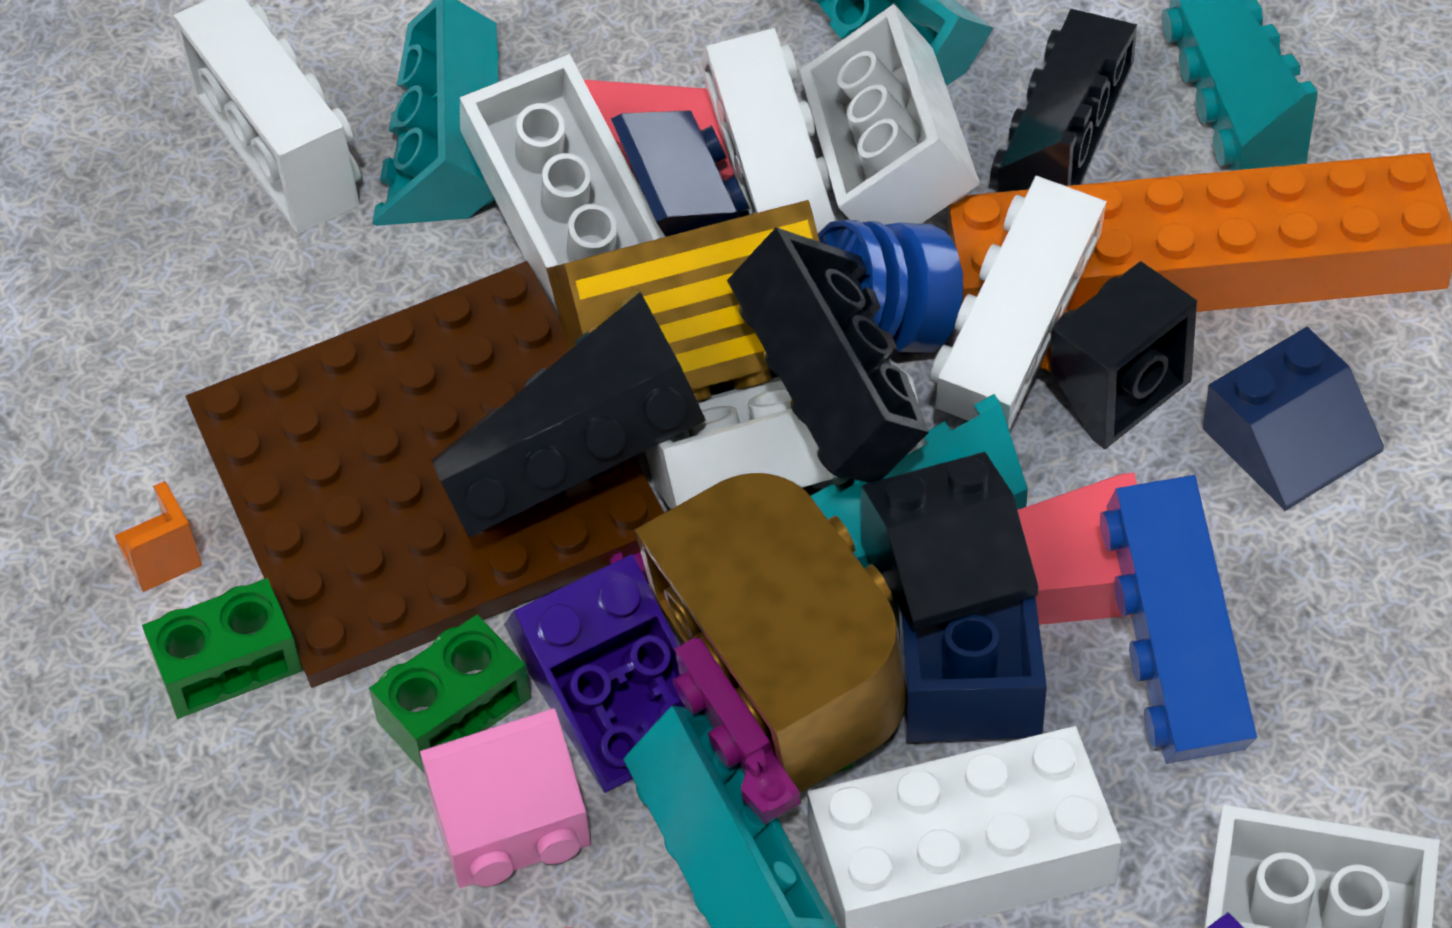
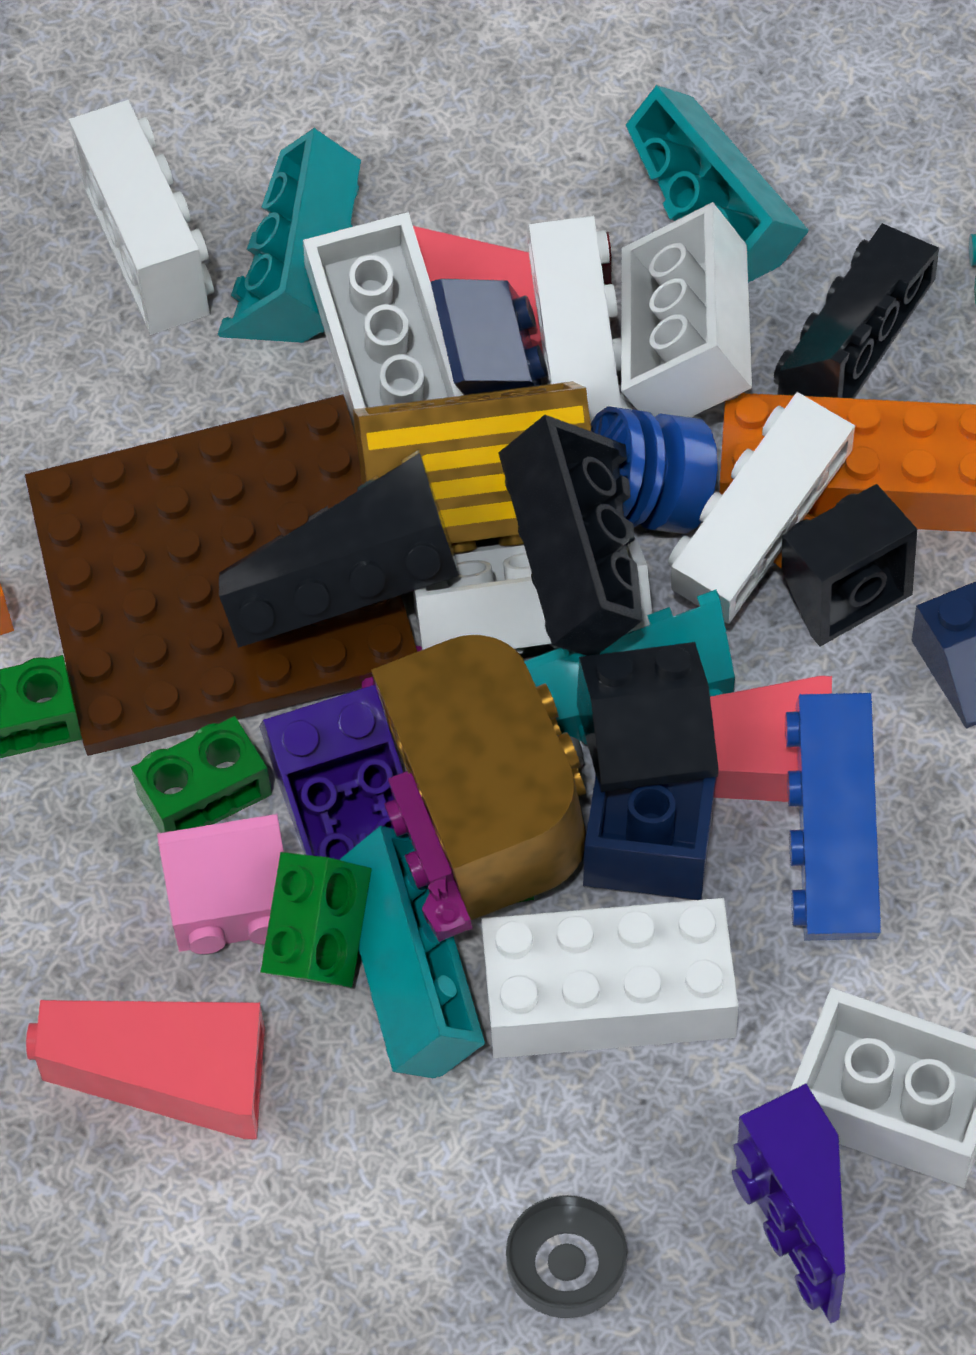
camera: 10 degrees right, 5 degrees up
(617, 822) = (316, 919): none -> green brick

